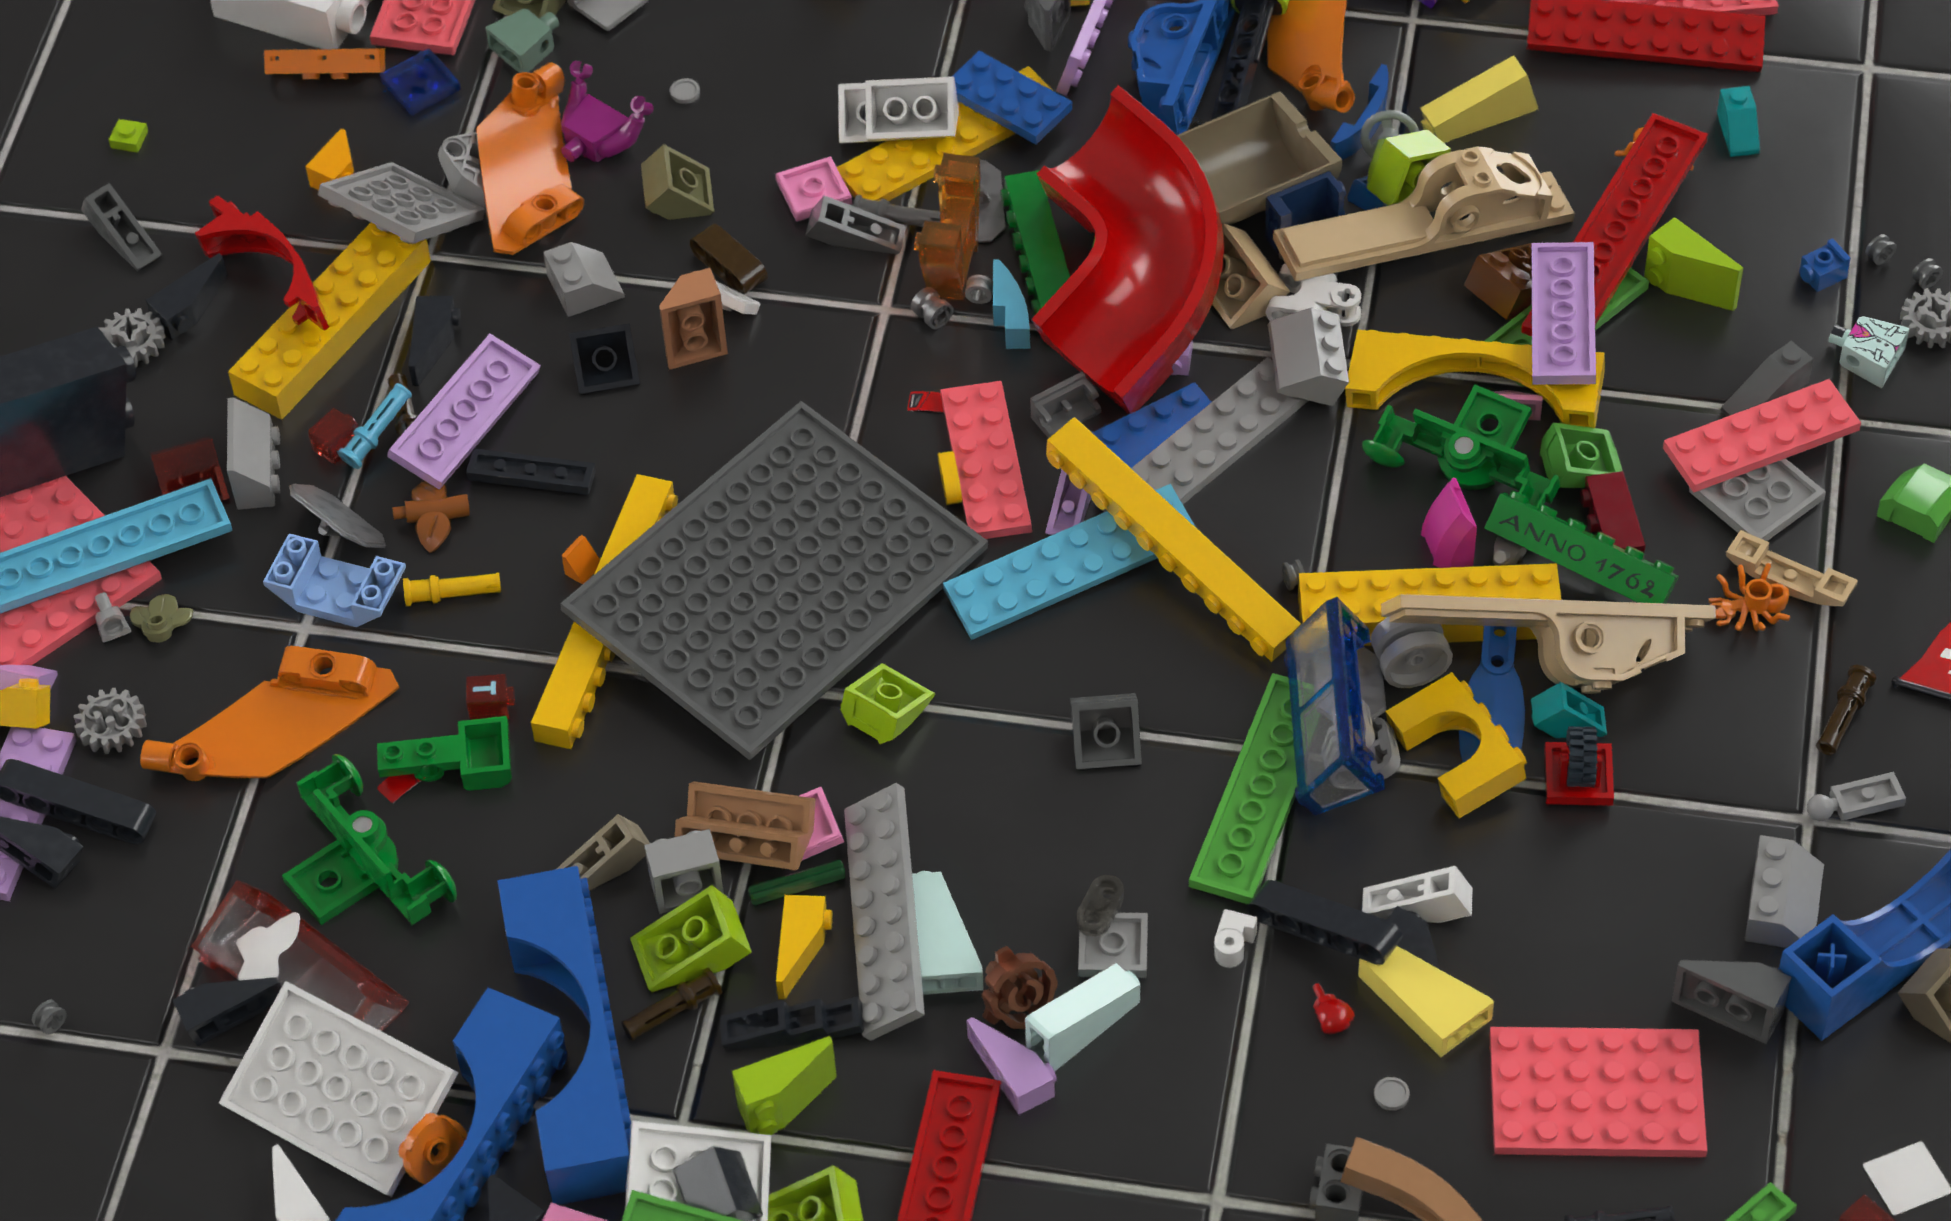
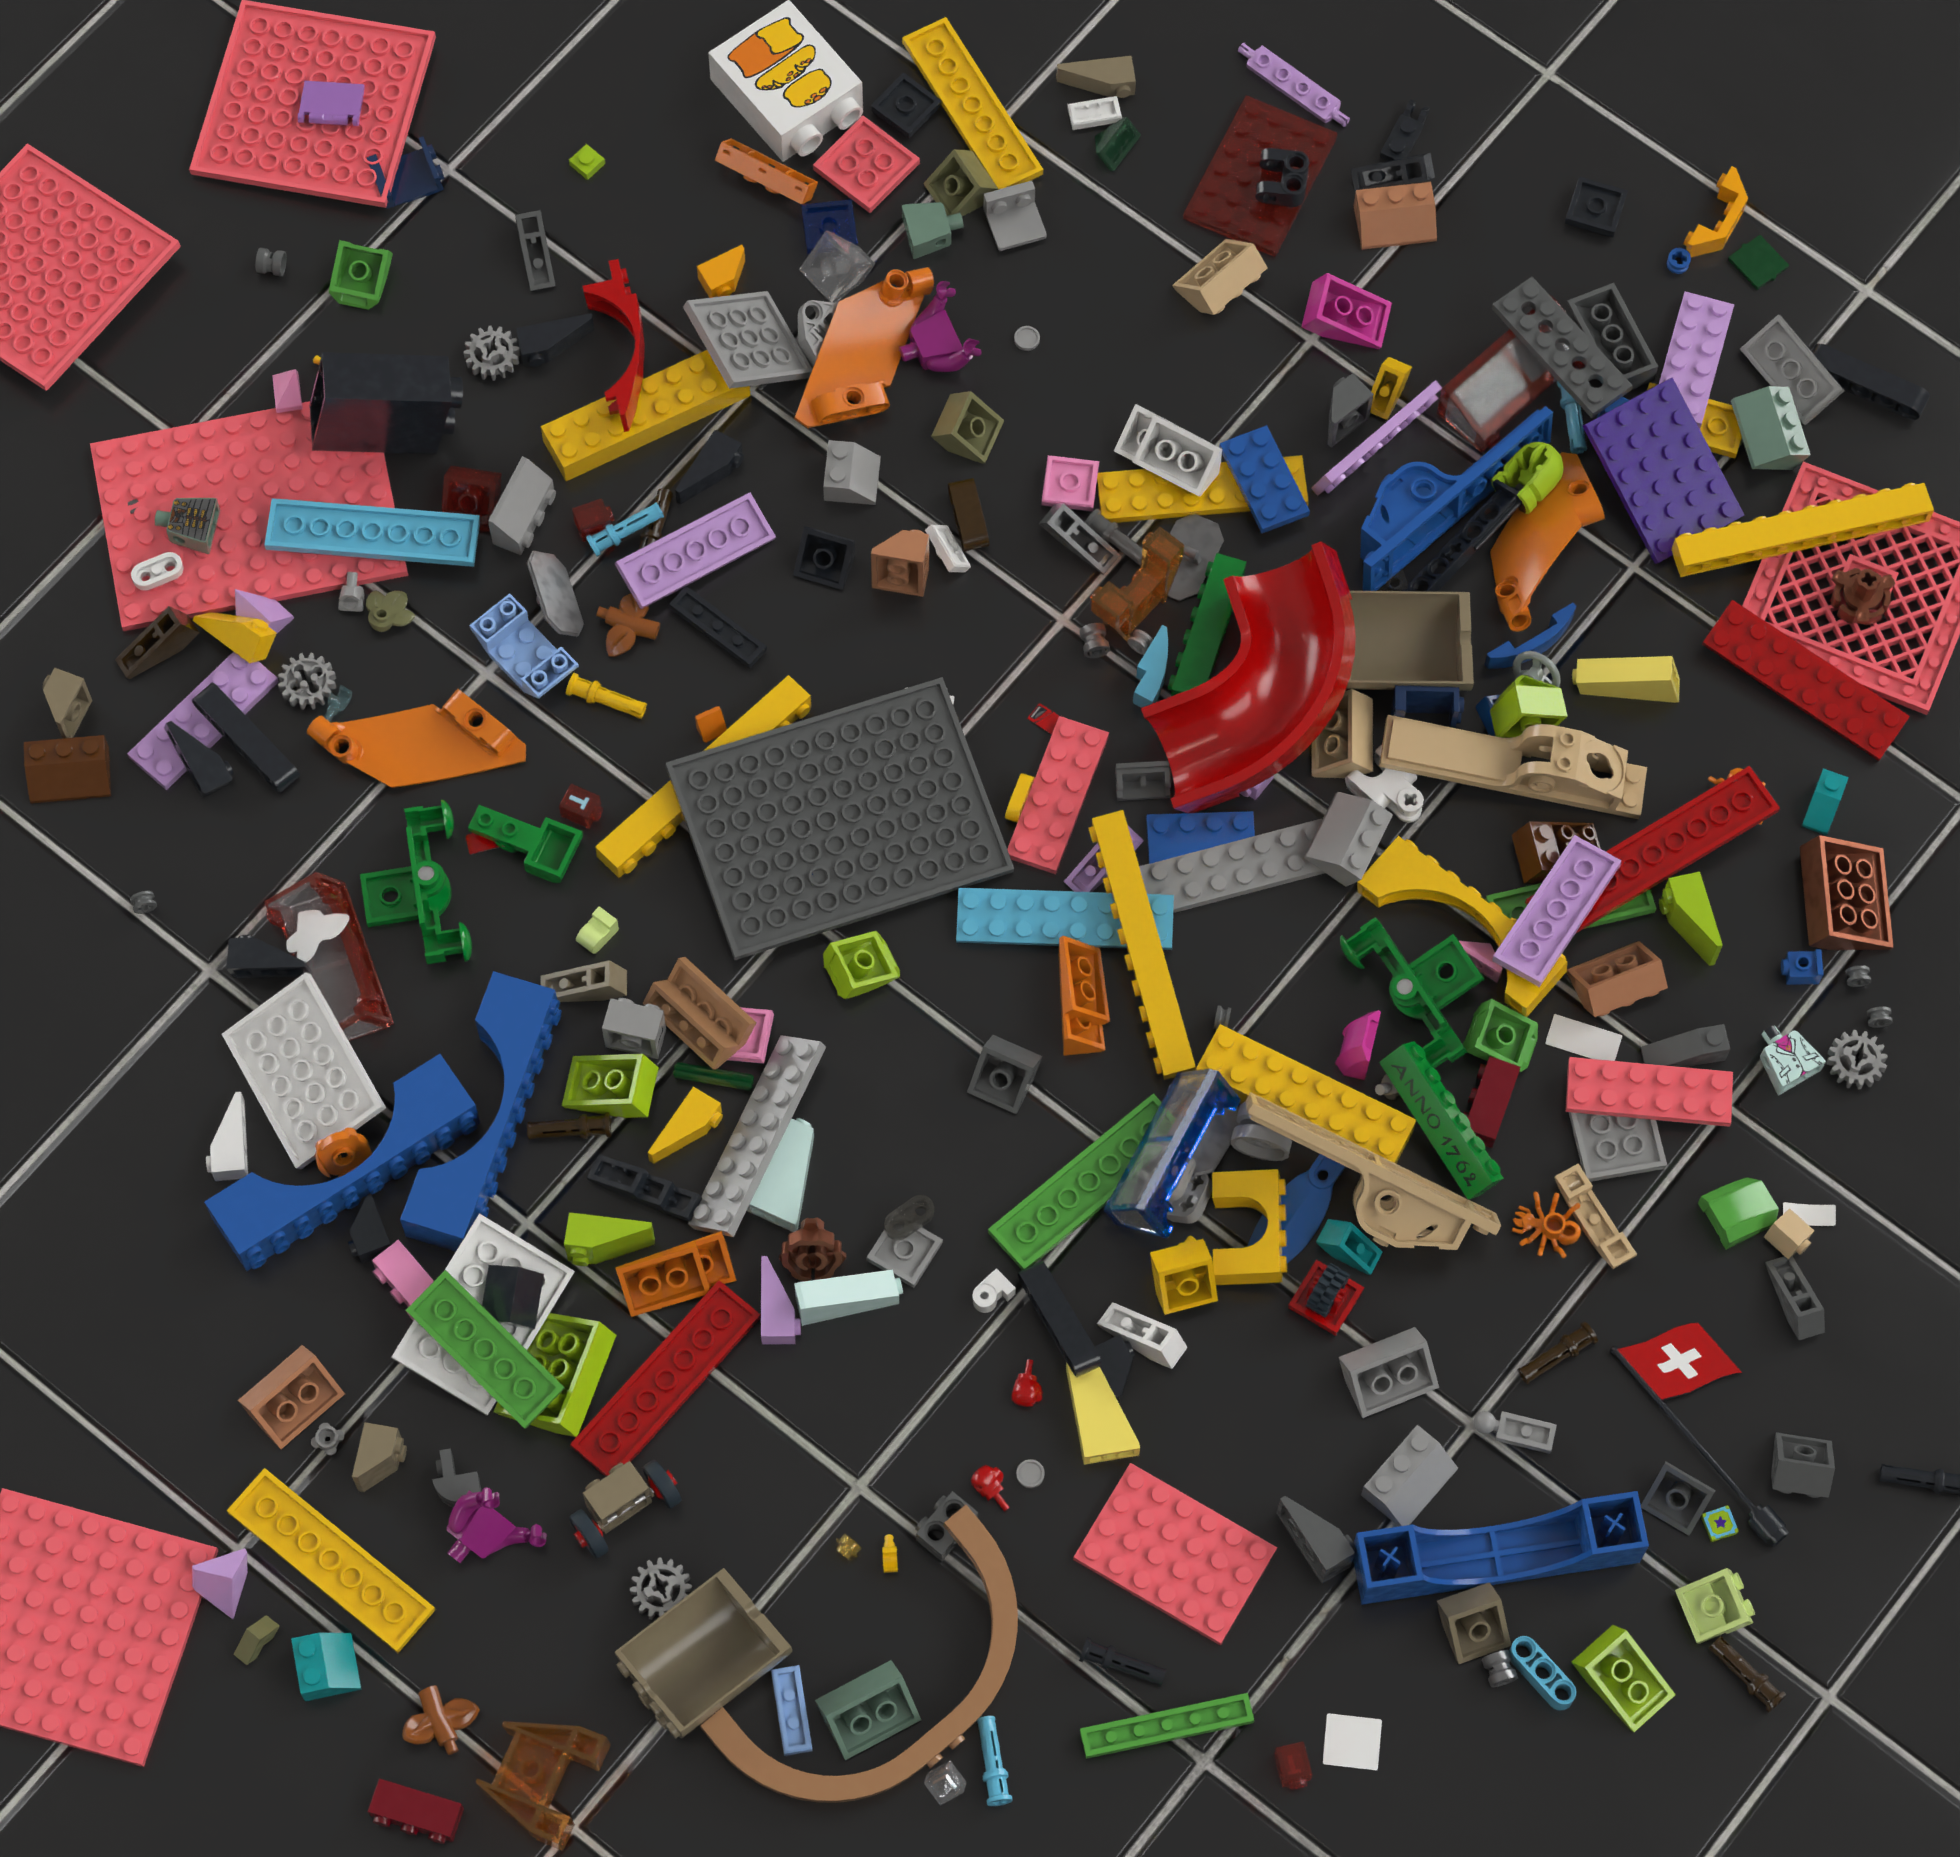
camera: 25 degrees right, 15 degrees up
(157, 723) = (338, 702): none -> clear light blue piece
(448, 108) = (836, 266): none -> clear slope
(582, 802) = (597, 930): none -> yellowish green leg
(881, 1087) = (676, 1274): none -> orange slope
(1135, 625) = (1082, 997): none -> orange slope
(1353, 1122) = (987, 1483): none -> red piece
(1425, 817) = (1184, 1276): none -> yellow piece
(1655, 428) = (1583, 1039): none -> white sticker
(1658, 357) = (1618, 978): none -> nougat slope
(1692, 808) = (1389, 1372): none -> light grey slope
(1815, 189) = (1845, 895): none -> copper slope

